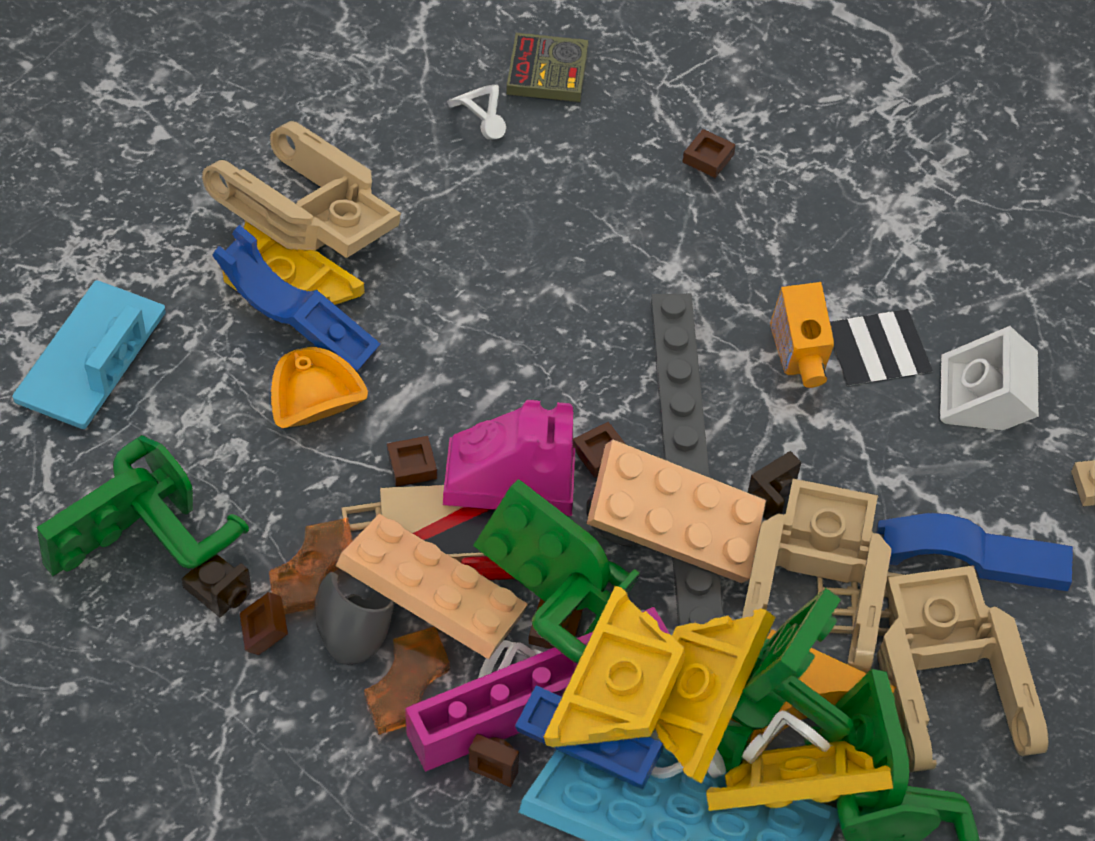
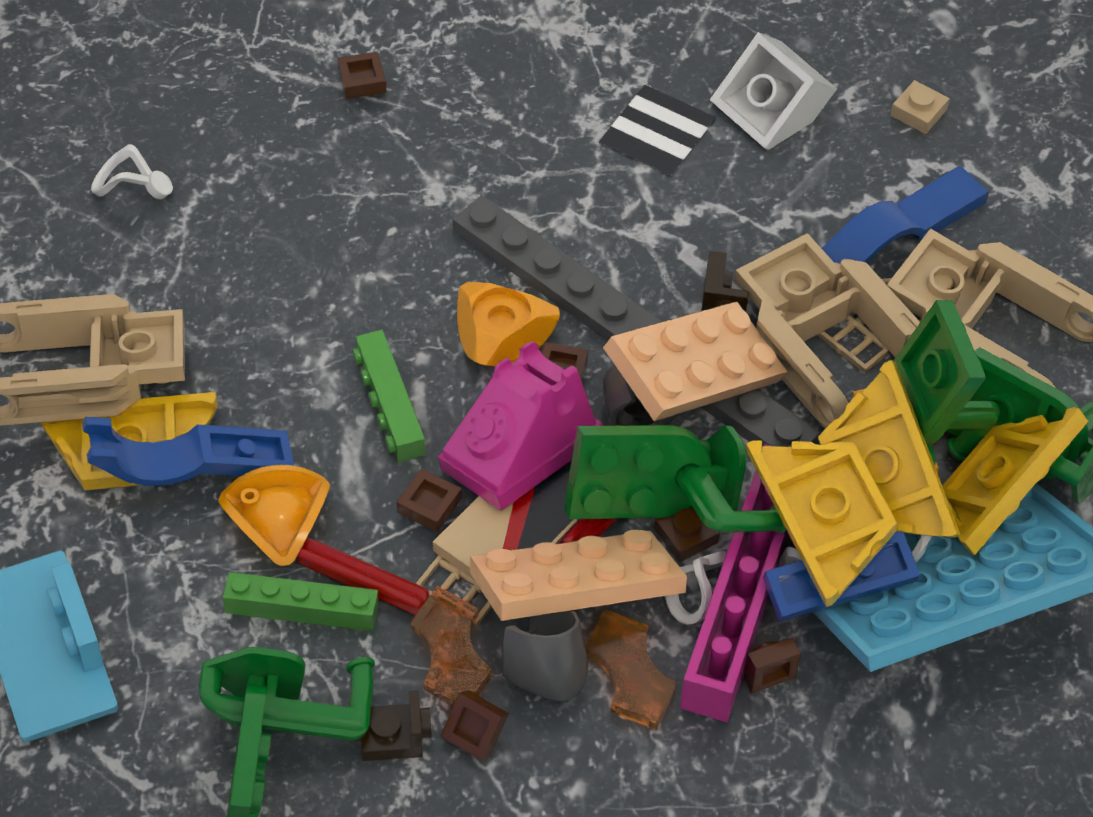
camera: 45 degrees left, 0 degrees up
(261, 457) = (301, 601): none -> bright green piece
(316, 471) = (361, 574): none -> red axle
(470, 375) = (389, 396): none -> bright green piece
(547, 67) = (141, 102): tile -> none
(600, 389) = (501, 321): none -> light orange hat
(781, 719) = (962, 440): white piece -> none
(803, 332) = (609, 157): light orange torso -> none

